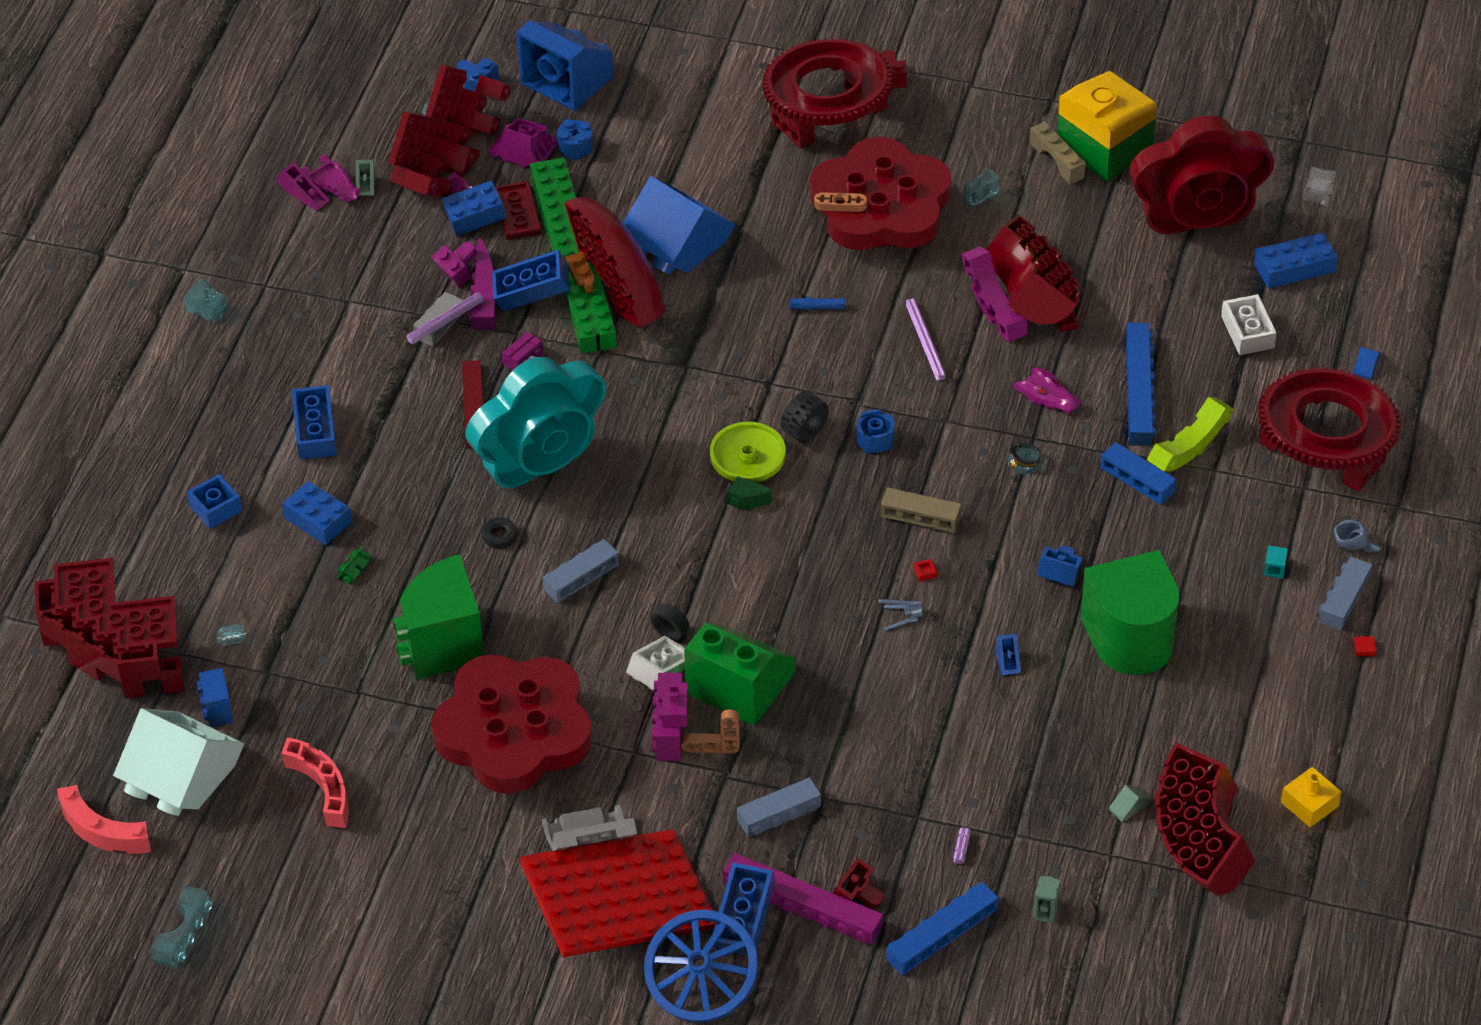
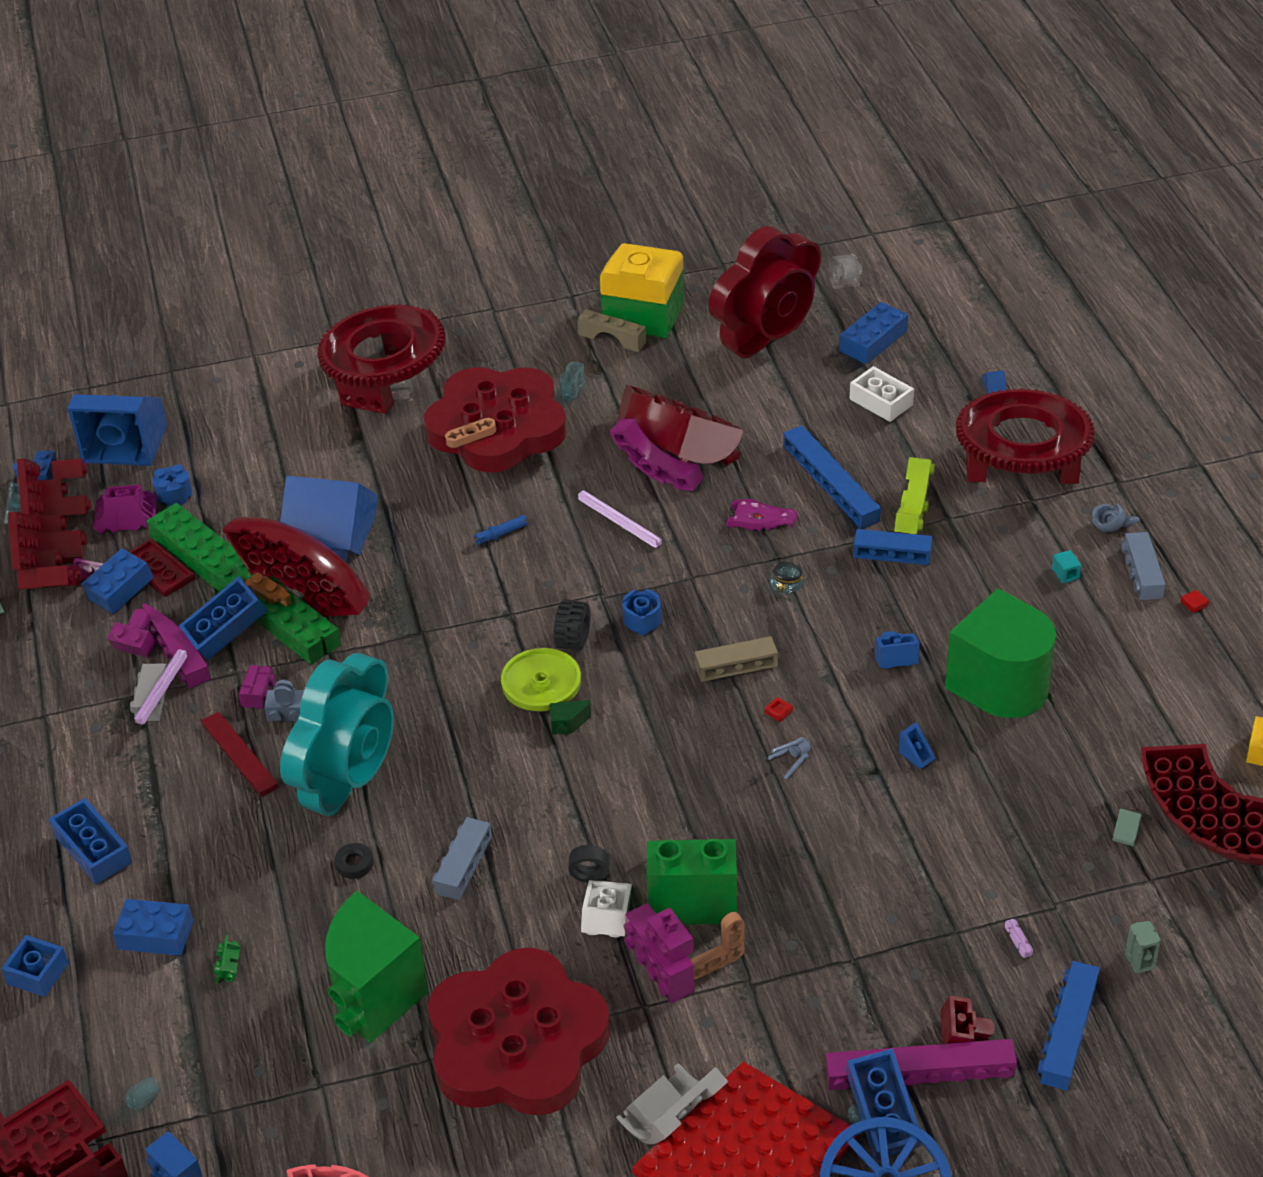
camera: 30 degrees left, 5 degrees down
(779, 807) = (827, 988): sand blue brick -> none

